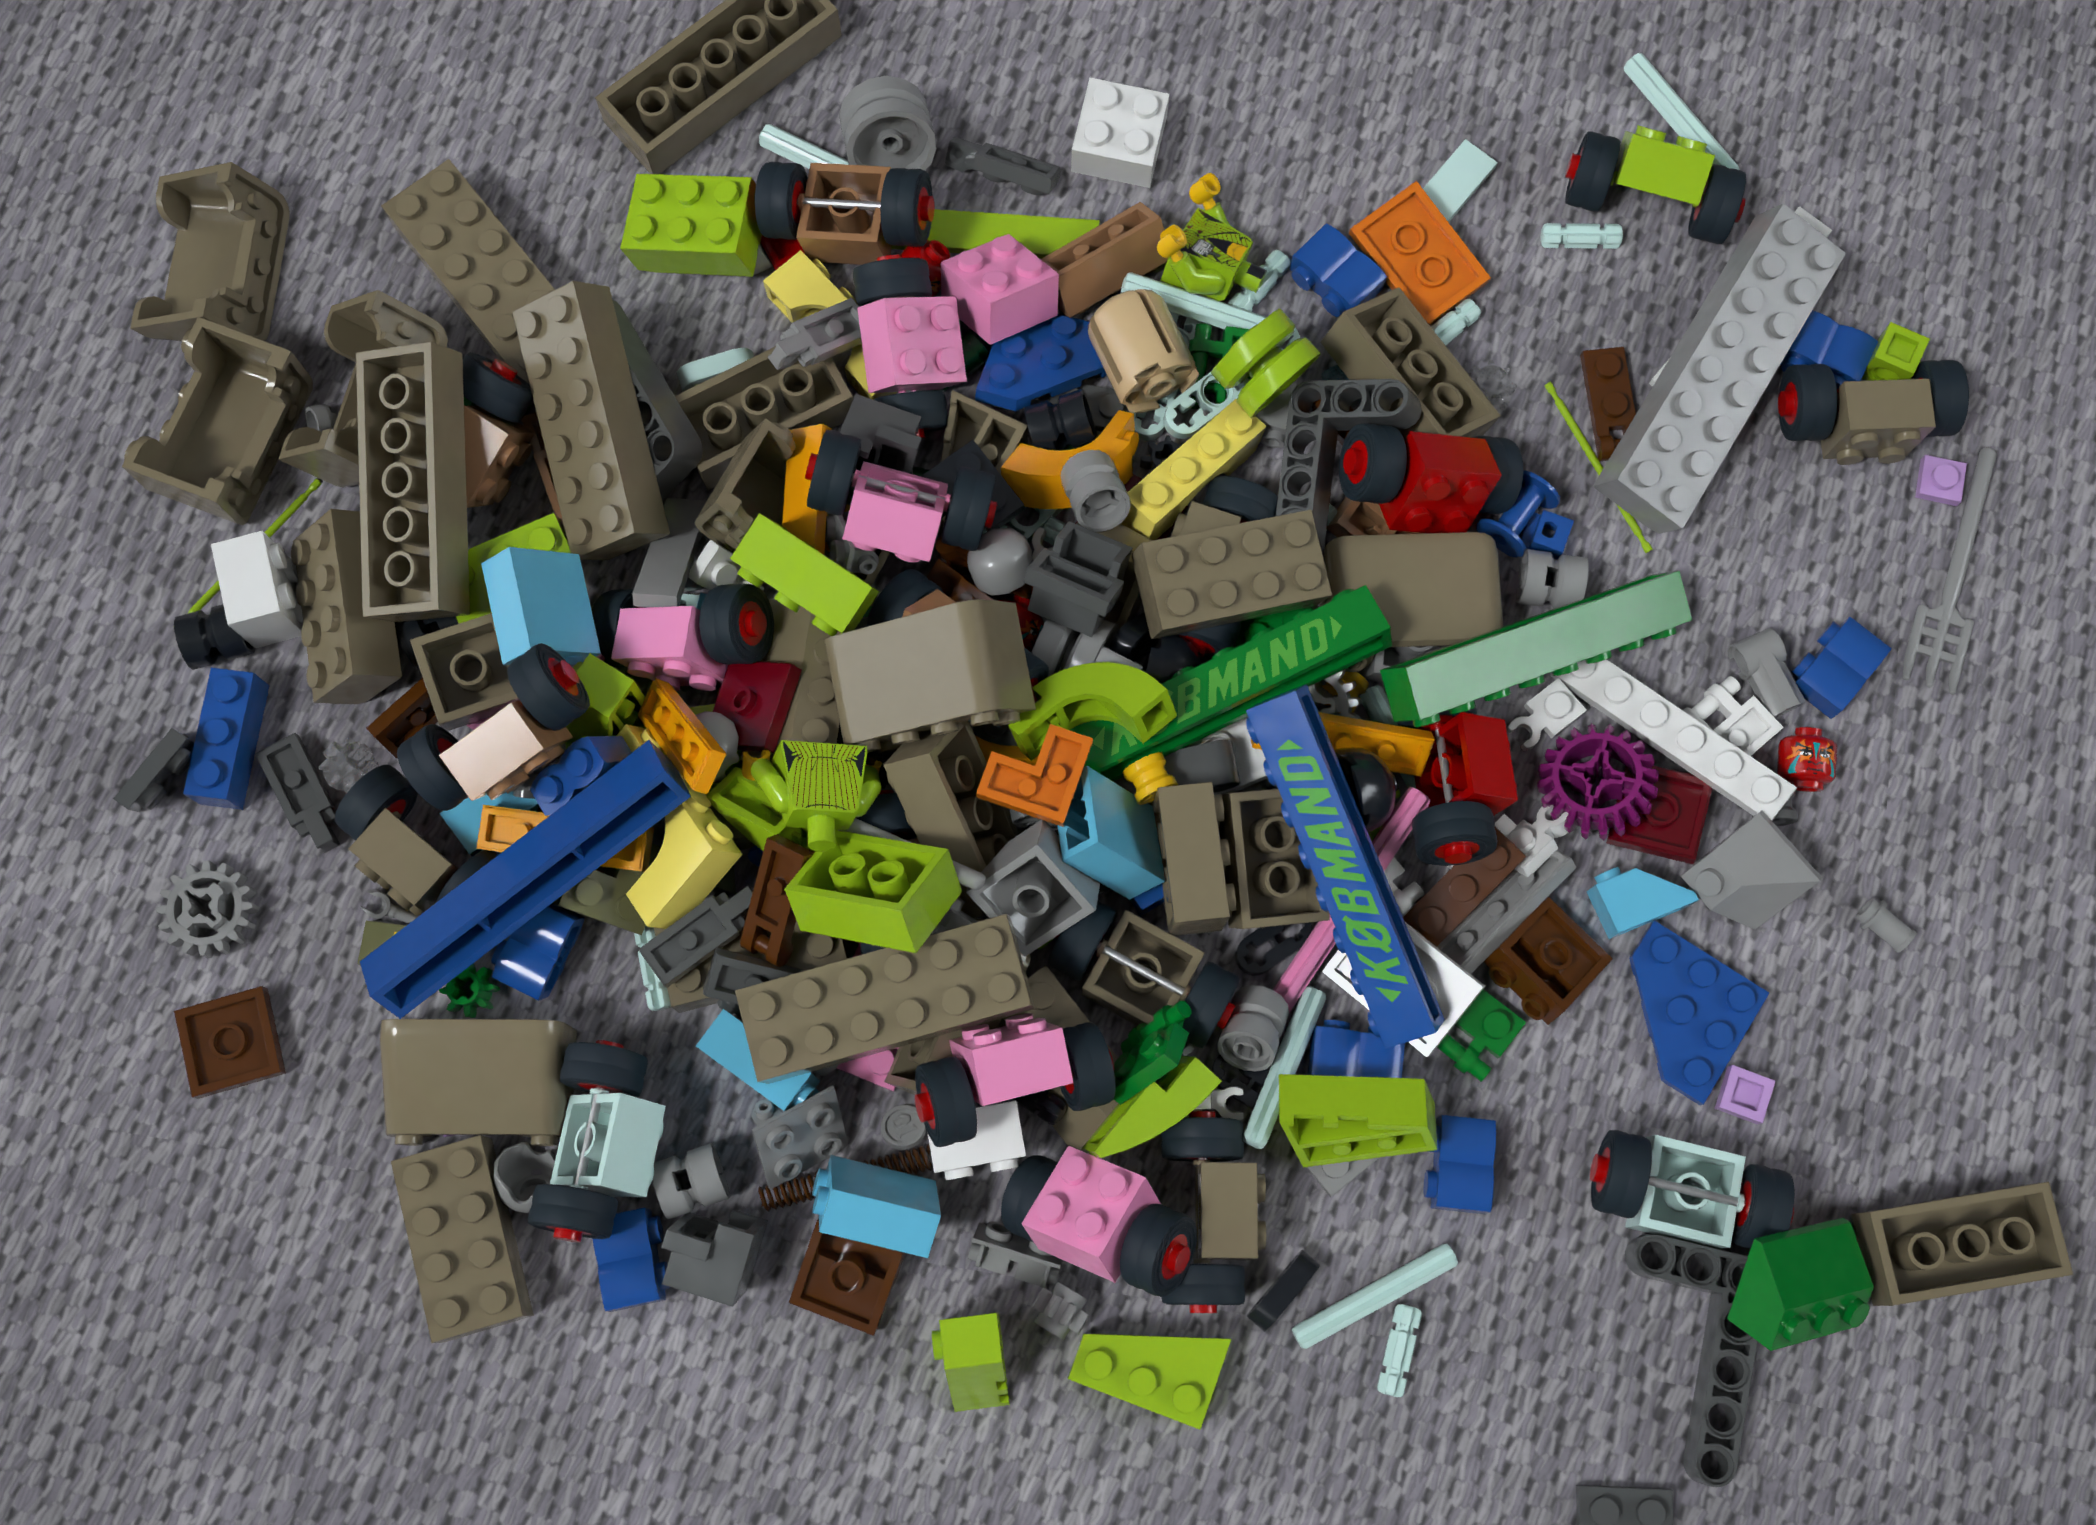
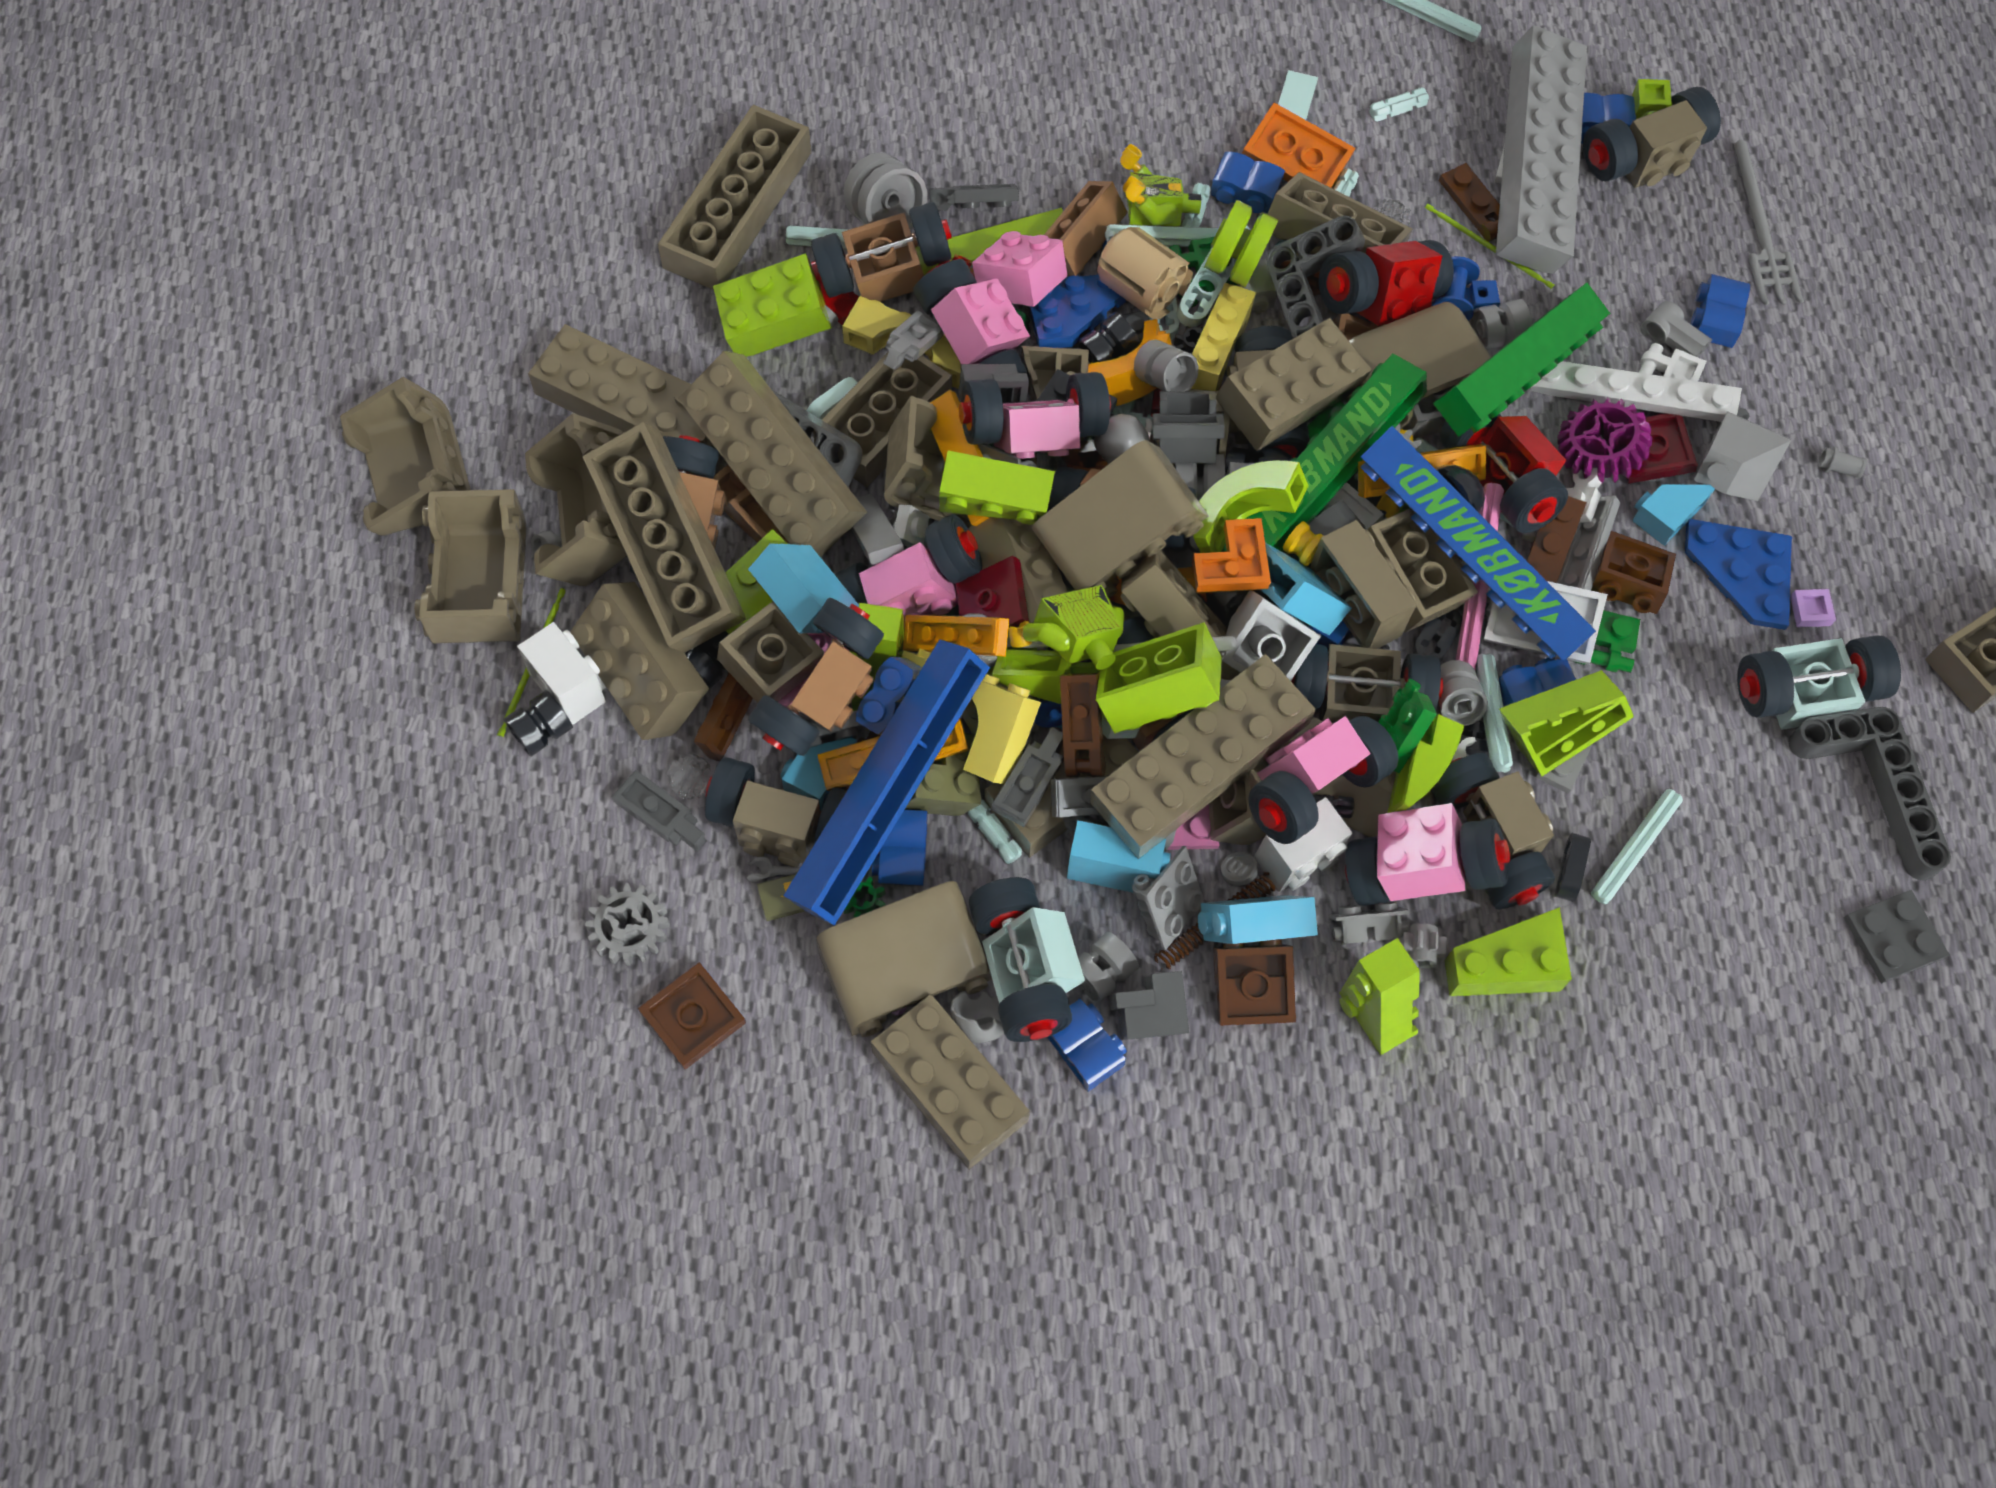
camera: 25 degrees left, 10 degrees down
(145, 785) = (548, 825): dark grey plate -> none
(226, 738) = (584, 794): blue brick -> none
(1119, 132) = (1048, 144): white brick -> none
(1399, 1350) = (1674, 876): light aqua axle -> none
(1462, 1165) = (1653, 733): blue brick -> none
(1550, 711) = (1546, 410): white plate -> none
(1661, 168) = (1435, 38): brick -> none
(1802, 1285) = (1928, 704): green slope -> none
(1807, 759) = (1735, 372): red head -> none
(1941, 480) = (1719, 172): lavender plate -> none

